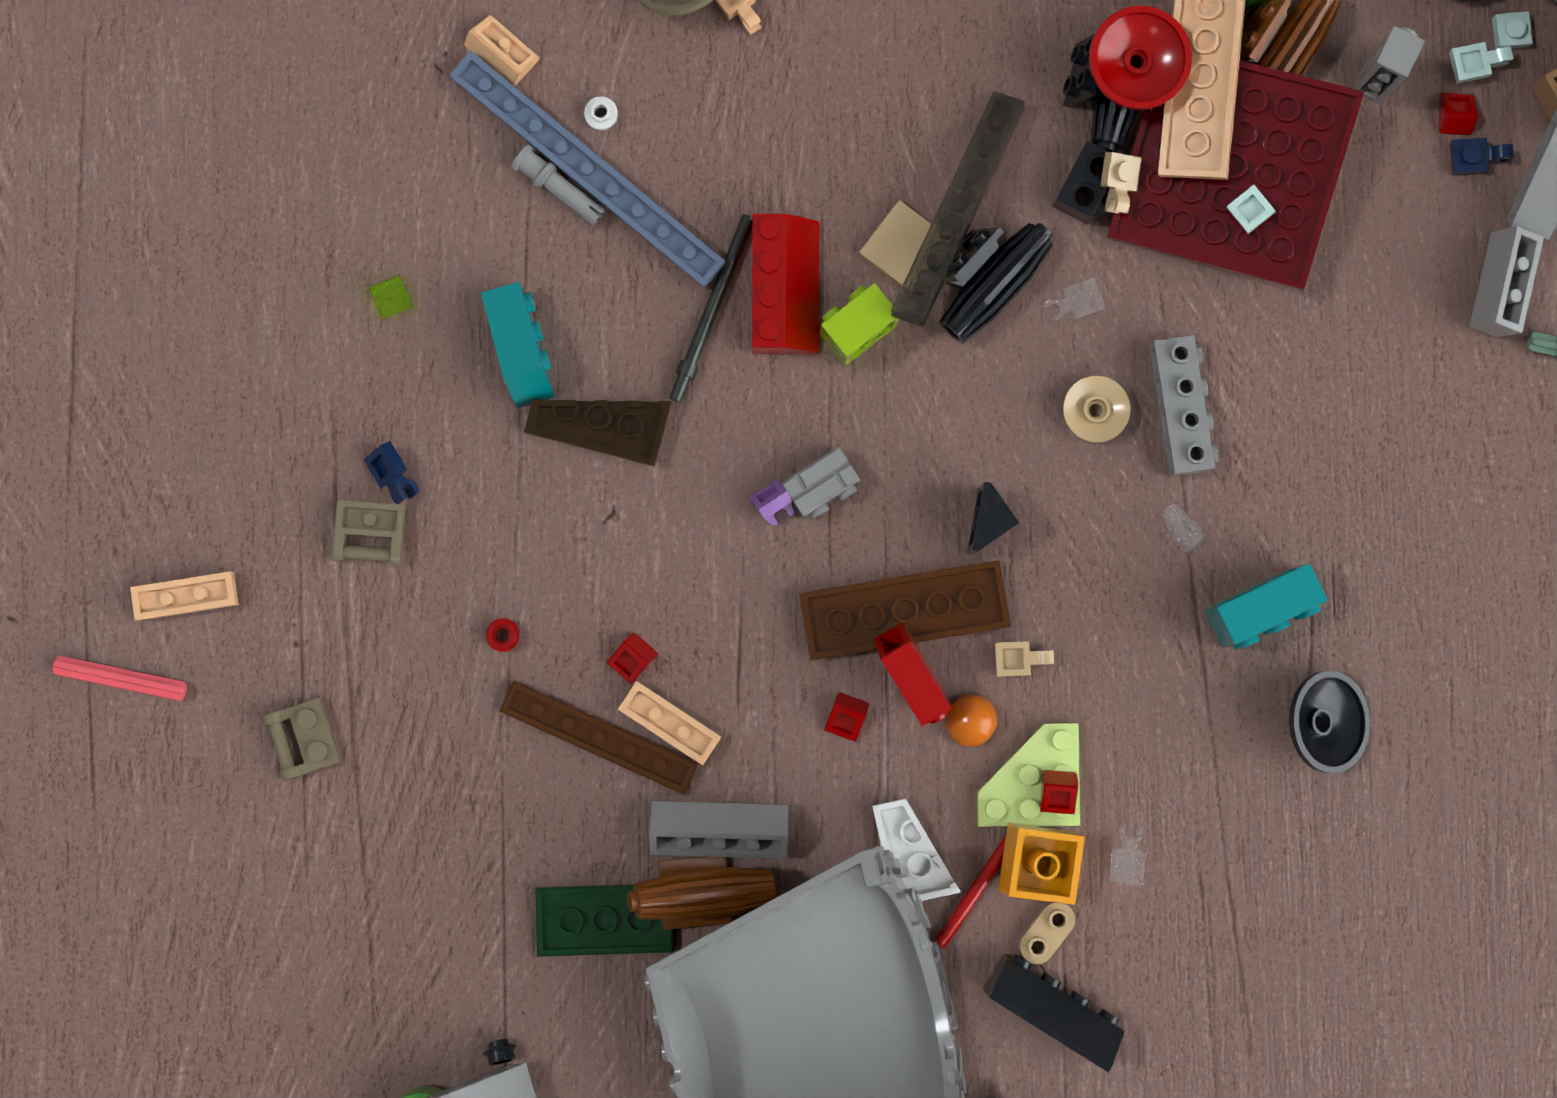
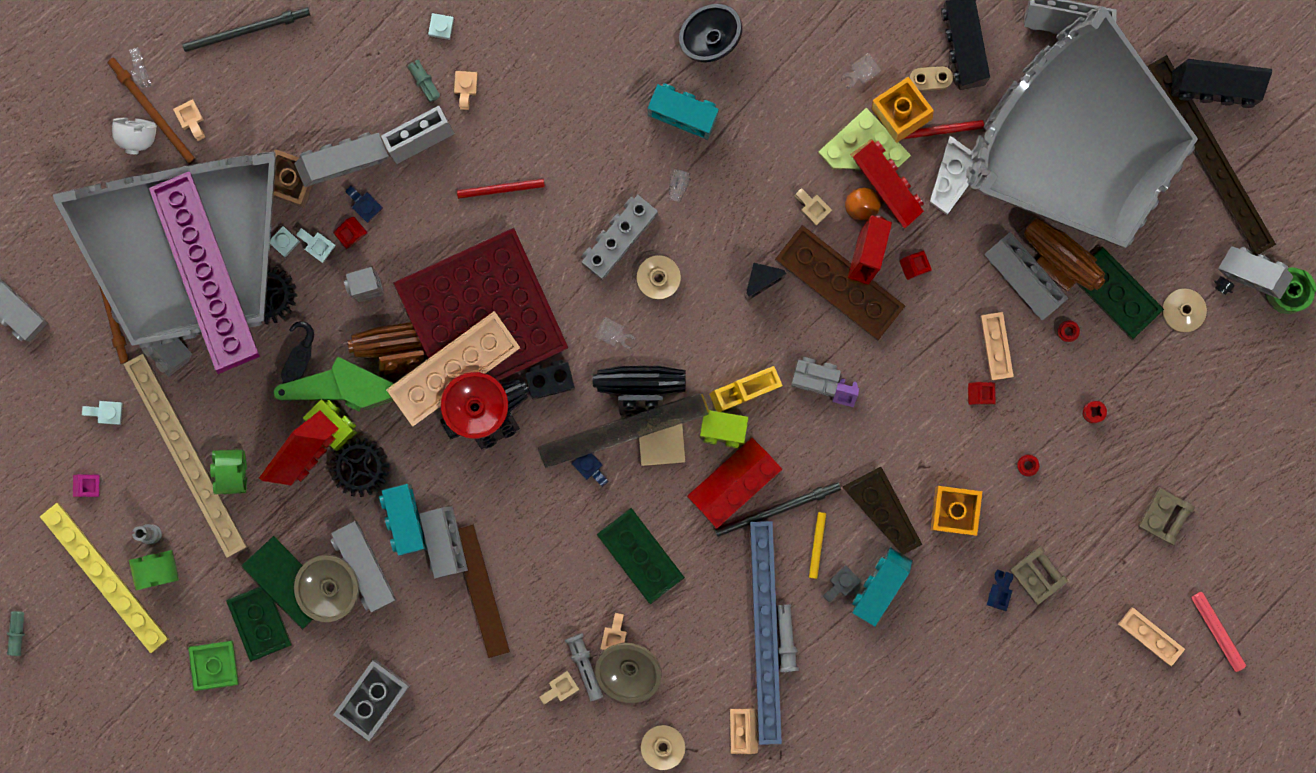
camera: 130 degrees left, 0 degrees up
(391, 297) = (915, 671): clear neon green tile -> none
(499, 766) = (1092, 415): none -> red wheel
(525, 503) = (956, 510): none -> light orange brick
(531, 974) = (1174, 314): none -> tan dish
(563, 308) = (843, 582): none -> dark grey plate
(599, 737) = (1034, 374): reddish brown tile -> none
(604, 830) = (1073, 326): none -> red plate
(605, 122) = (731, 644): white plate -> none
(631, 316) = (817, 545): none -> yellow bar
(798, 110) = (640, 556): none -> dark green tile
(879, 393) = (745, 389): none -> yellow slope
(949, 142) = (589, 466): none -> dark blue plate
(971, 765) = (887, 183): none -> red slope
(1059, 792) = (860, 131): red slope -> none
(1119, 175) = (535, 366): tan plate -> none
(1251, 209) = (498, 287): light aqua plate -> none
(1357, 324) = (501, 188): none -> red bar
(1513, 390) = (465, 86): none -> light nougat plate

